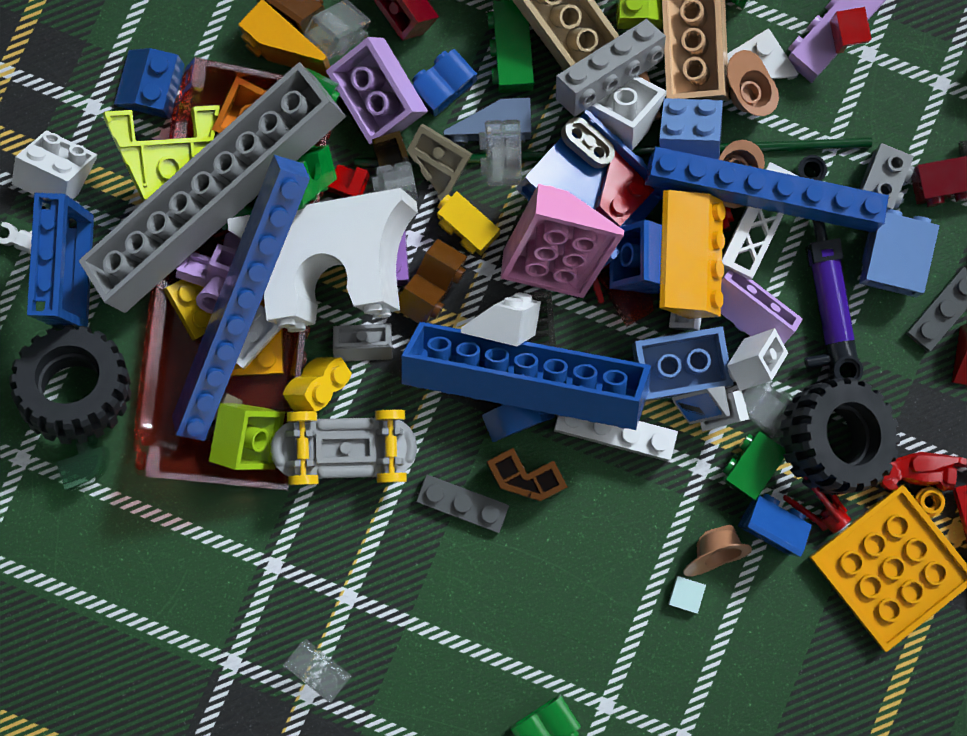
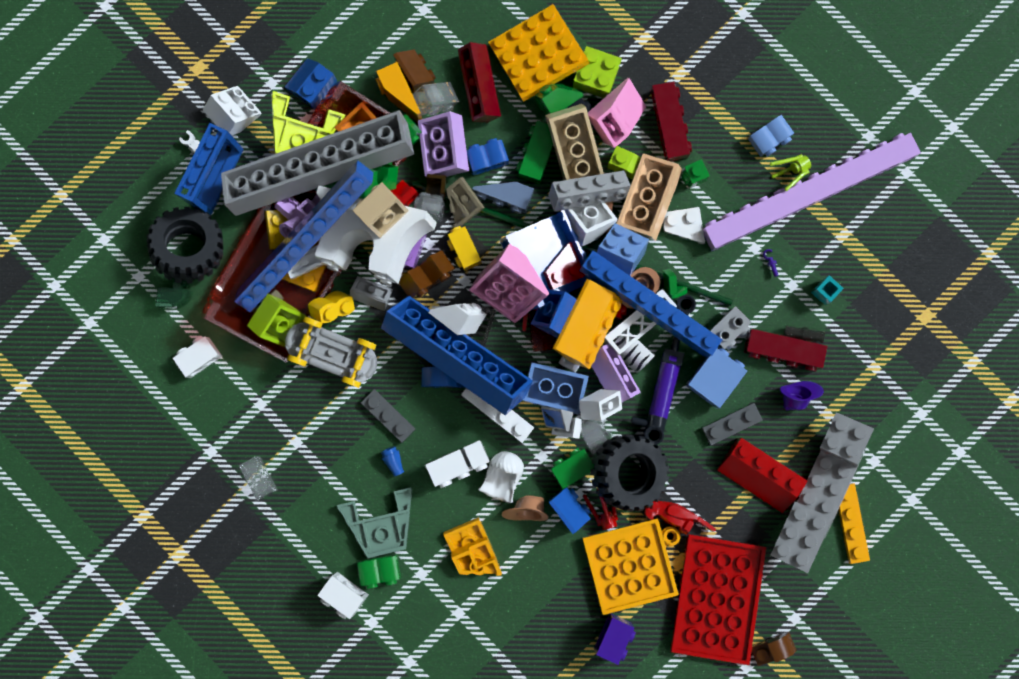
camera: 25 degrees right, 0 degrees up
(155, 536) = (197, 356): none -> white brick
(335, 212) = (380, 210): none -> tan brick
(497, 563) = (393, 461): none -> blue cone
(503, 152) = (502, 215): clear brick -> none
(513, 478) = (436, 423): reddish brown brick -> none
(527, 671) = (381, 533): none -> sand green wing
(588, 142) = (557, 229): dark tan plate -> none
(594, 528) = (458, 464): none -> white piece
(662, 519) = (502, 476): none -> white piece
(662, 640) = (472, 549): none -> light orange slope
(687, 594) = (498, 528): light aqua tile -> none
(751, 84) = (672, 237): nougat piece -> none
(774, 271) = (636, 355): none -> white brick
(778, 150) = (670, 285): none -> green tile
(850, 28) = (745, 228): red panel -> none
(902, 64) = (771, 263): none -> dark purple hand
(919, 678) = (614, 639): none -> dark purple brick

